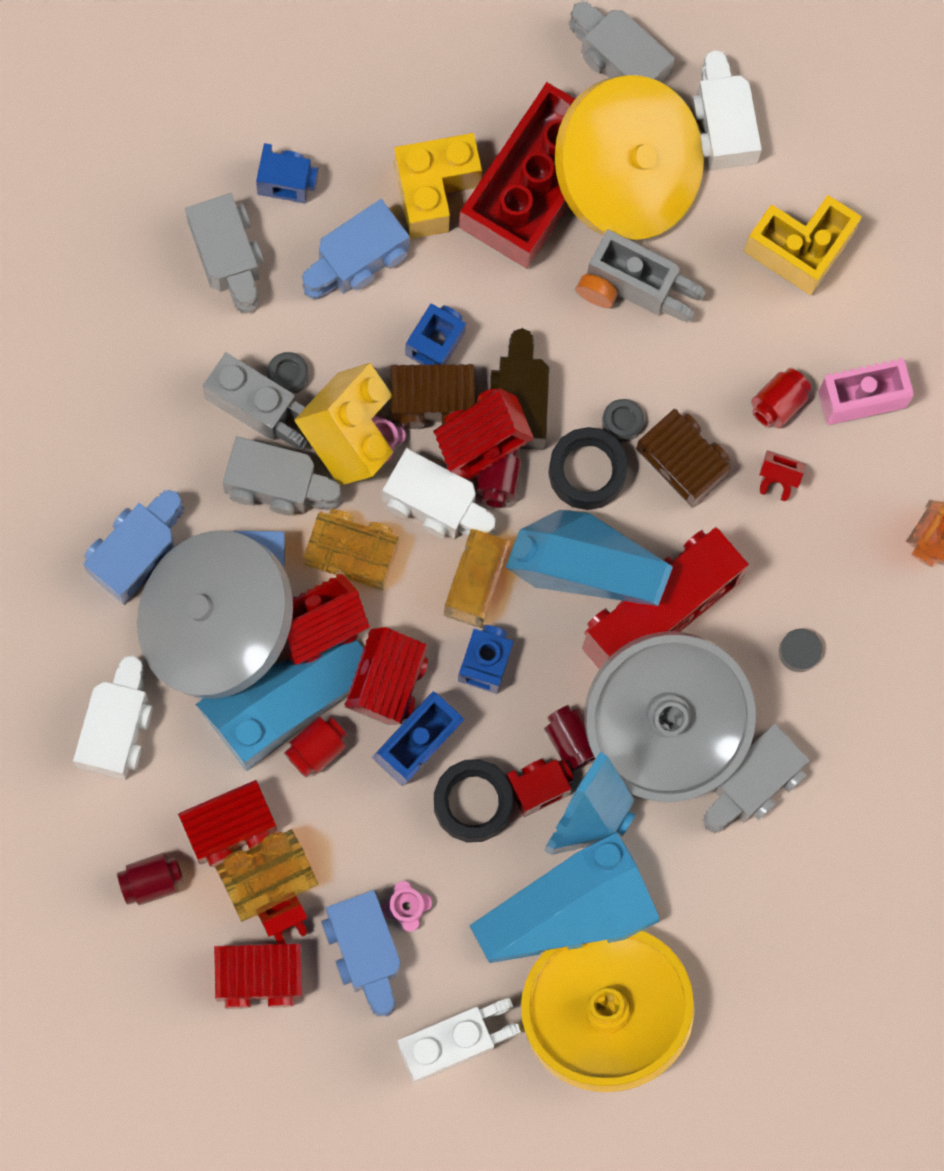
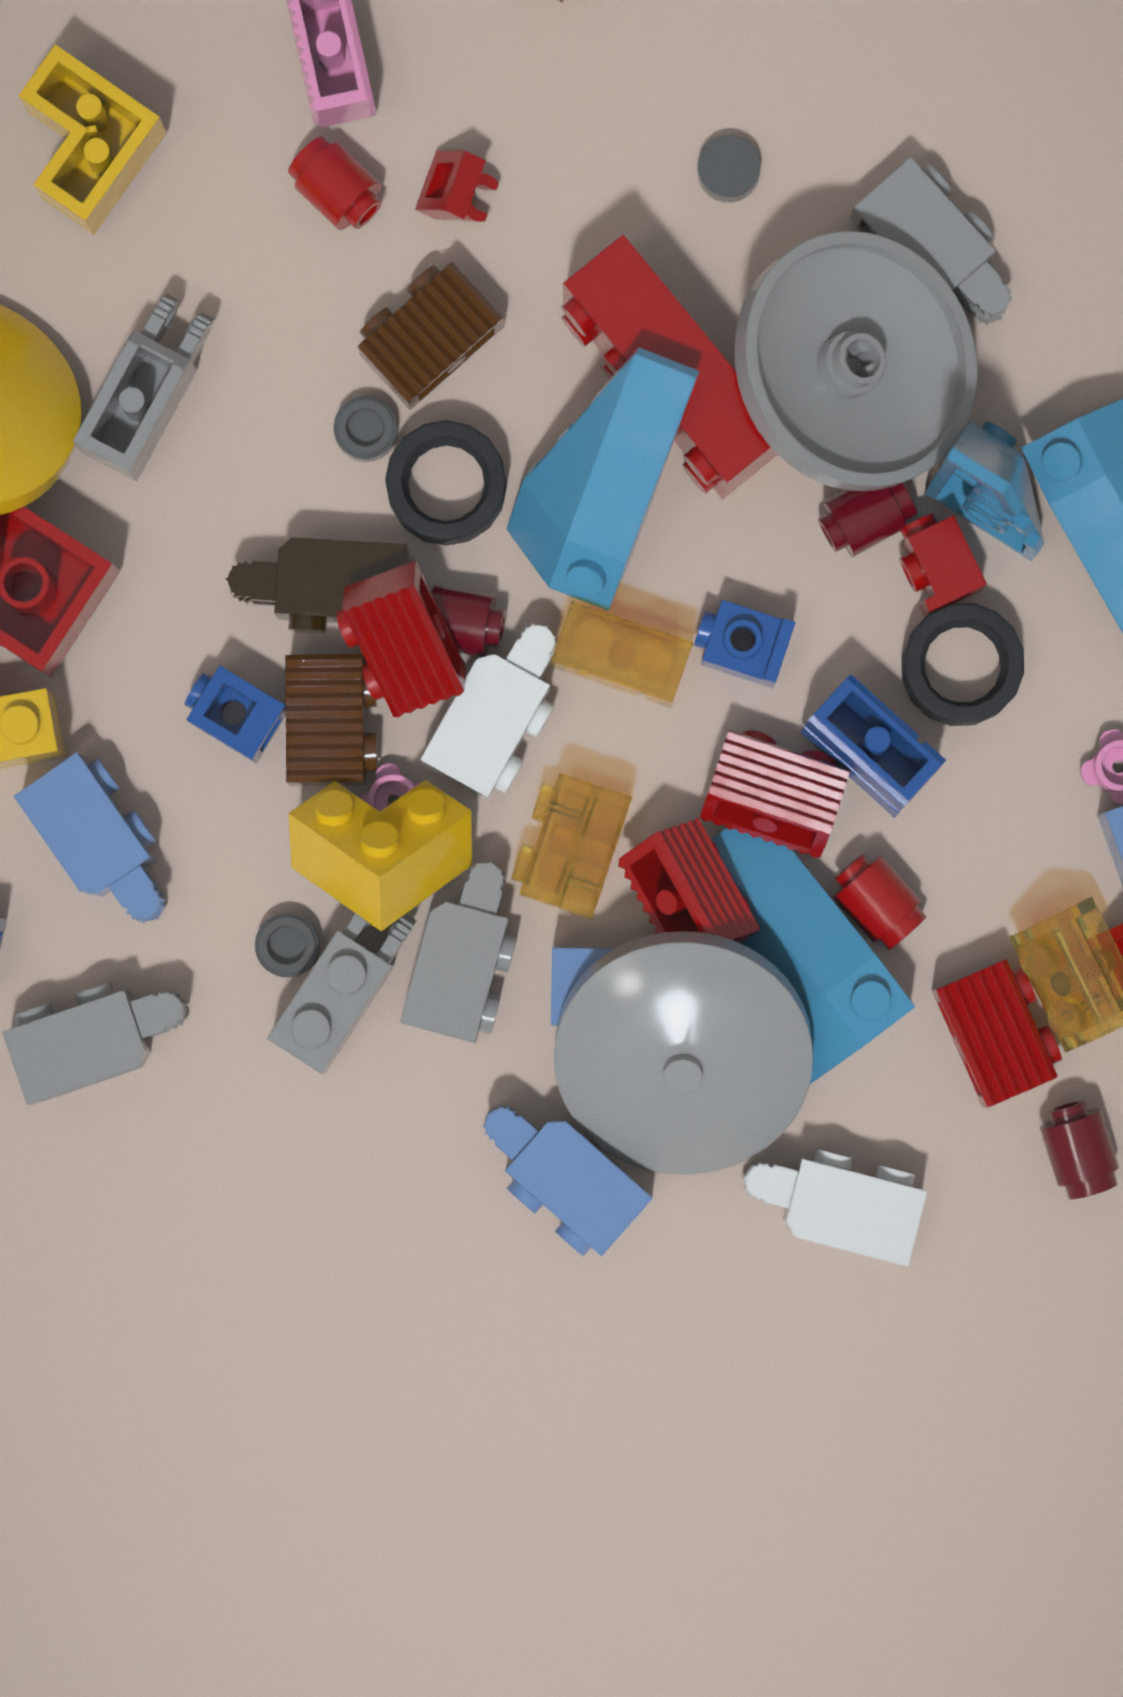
camera: 80 degrees left, 10 degrees up
(596, 290) = (159, 463): orange tile -> none

